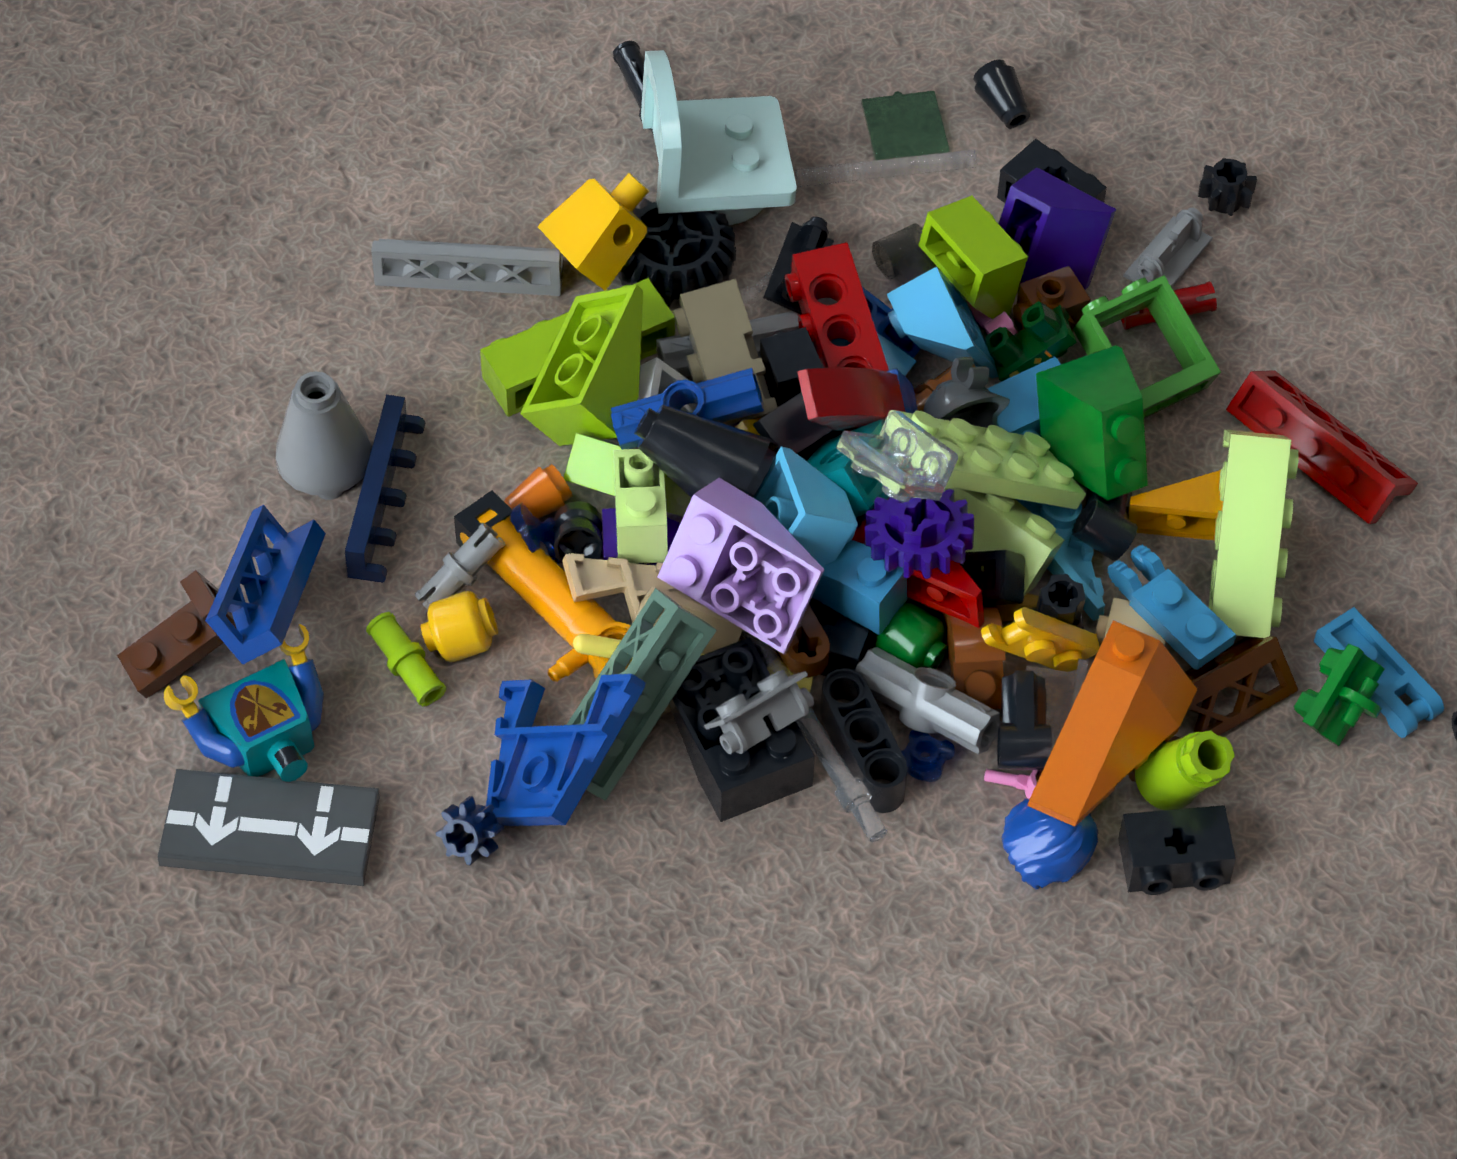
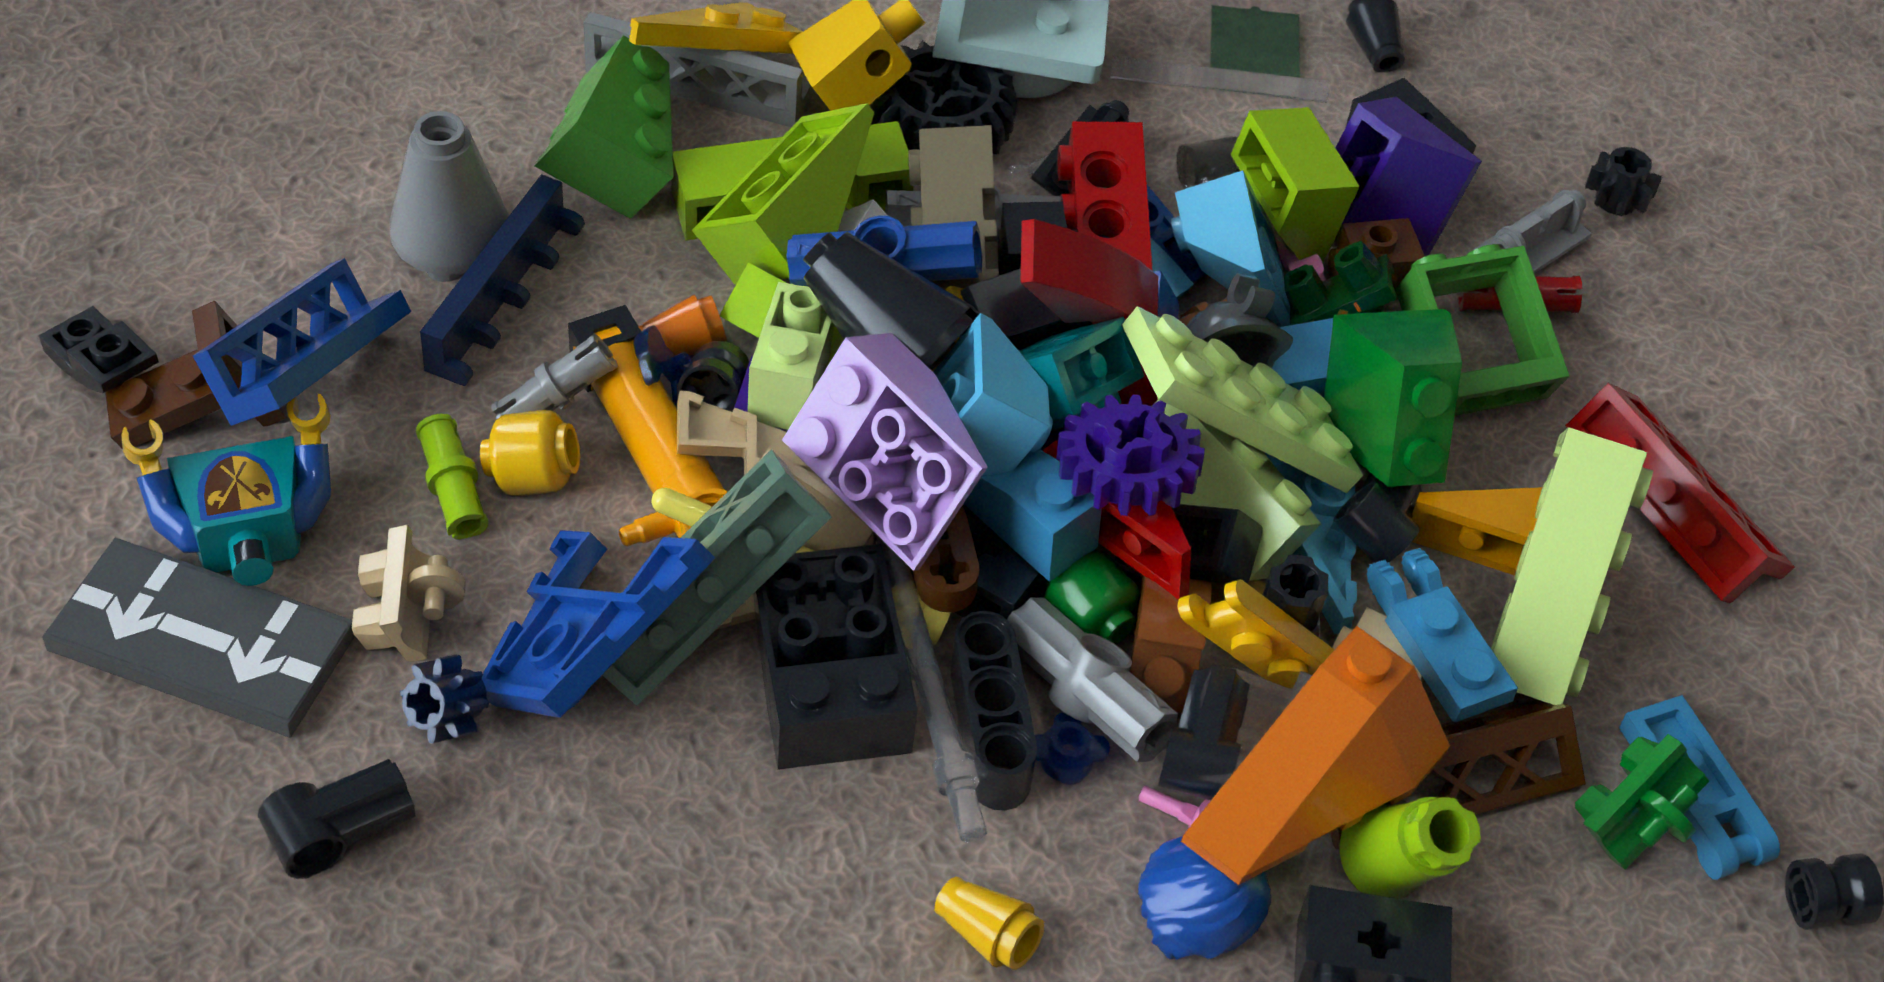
camera: 10 degrees right, 5 degrees down
(99, 627) = (97, 350): none -> black slope
(414, 755) = (412, 593): none -> tan hips
(414, 943) = (316, 825): none -> black piece
(430, 338) = (616, 130): none -> bright green wedge
(483, 227) = (717, 27): none -> yellow wing
(743, 719) = (834, 639): light grey hinge -> none
(901, 458) = (1130, 361): clear bracket -> none
(907, 894) = (990, 921): none -> yellow cone

